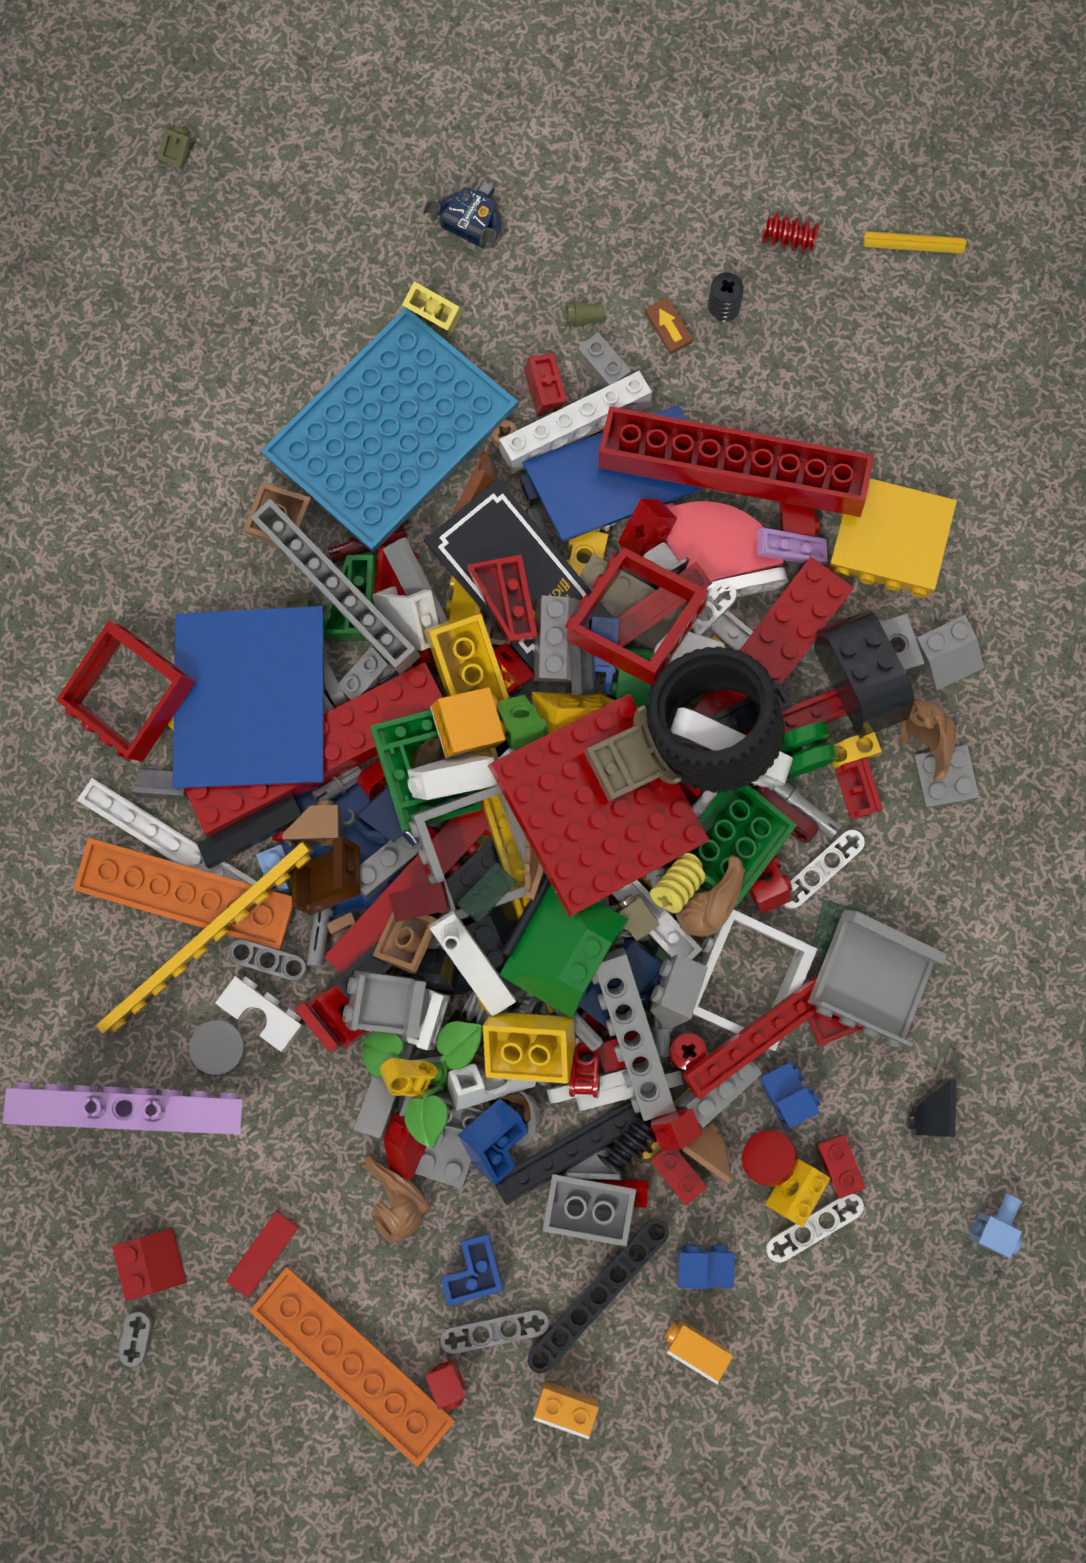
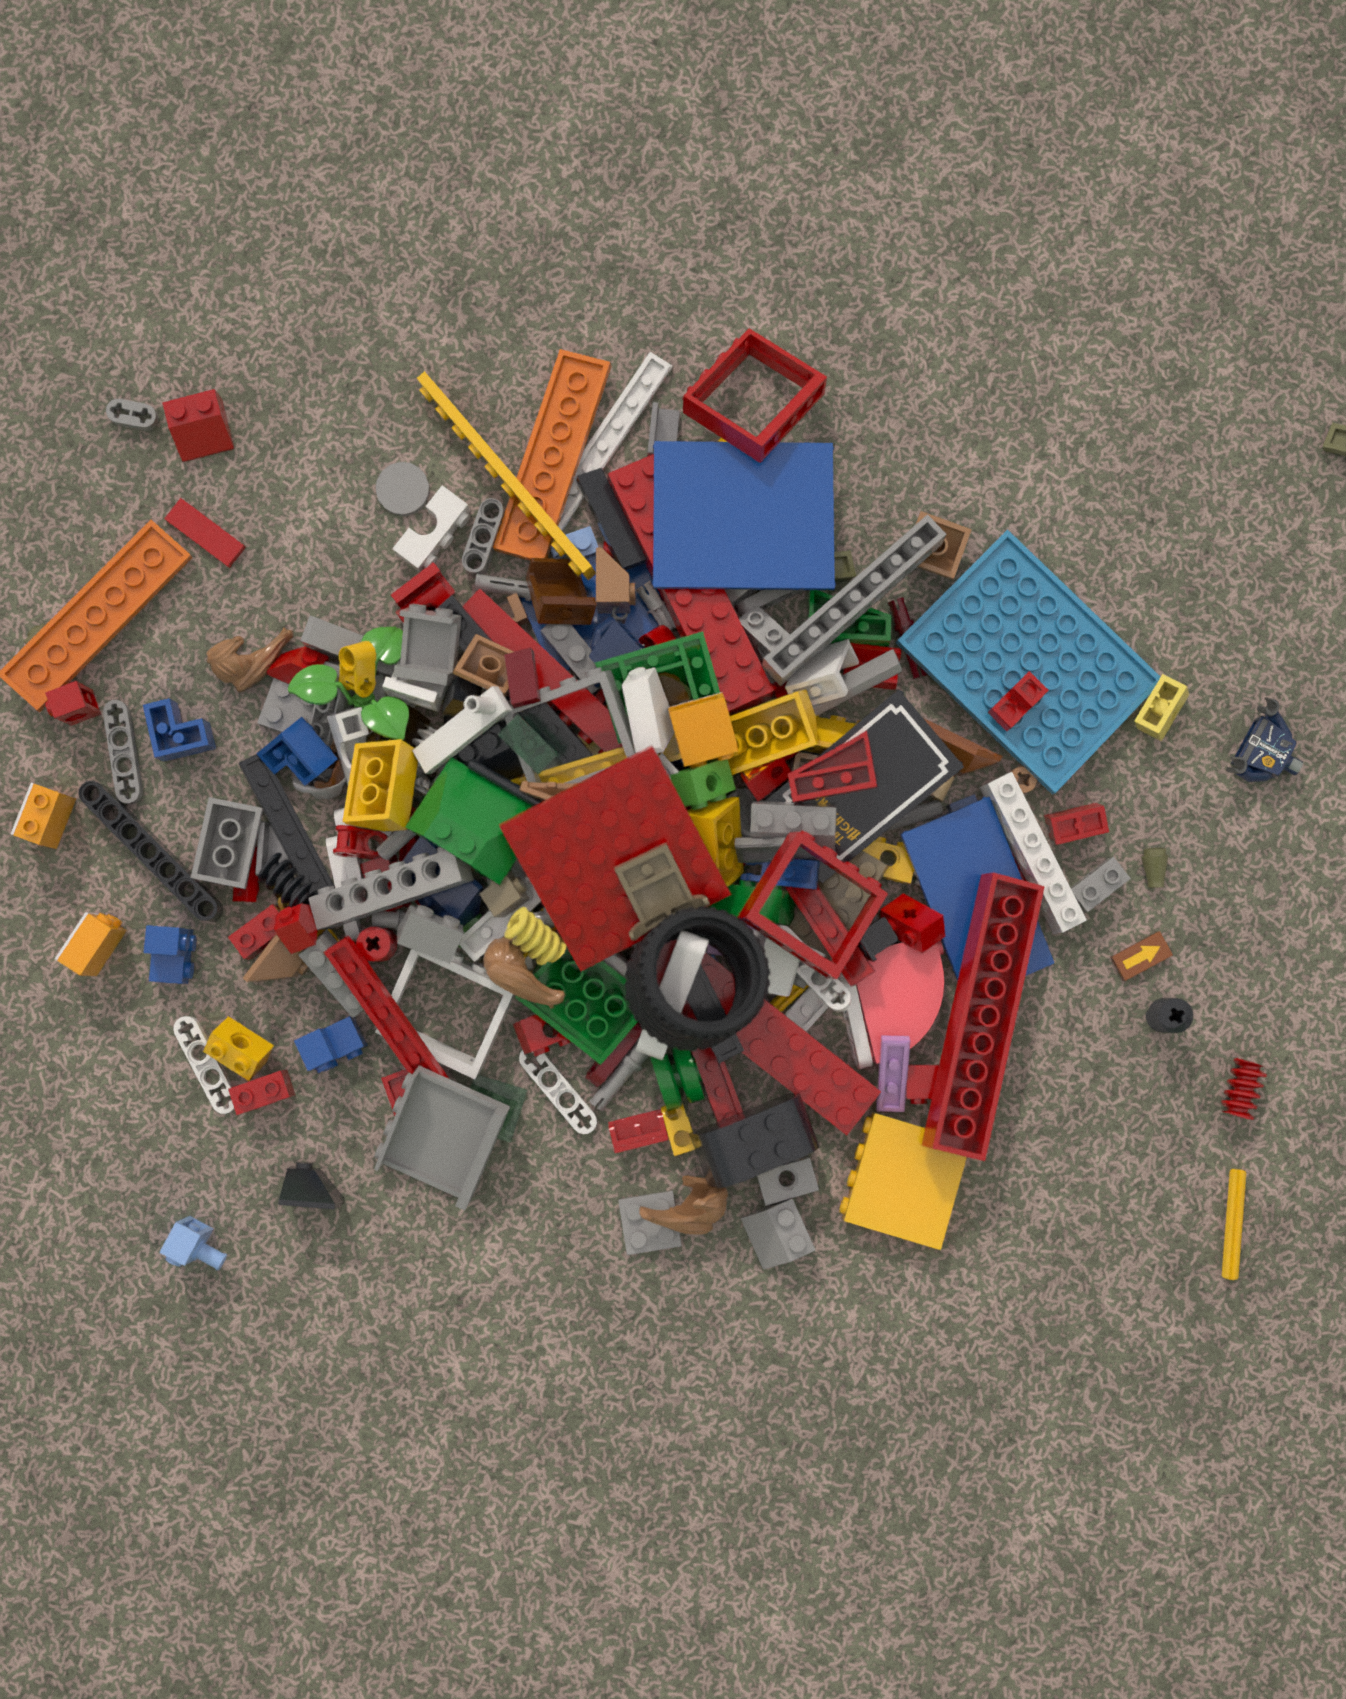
camera: 90 degrees right, 5 degrees up
(122, 1110) = (334, 393): lavender brick -> none
(430, 435) = (1018, 701): none -> red slope
(769, 1158) = (272, 1022): red tile -> none

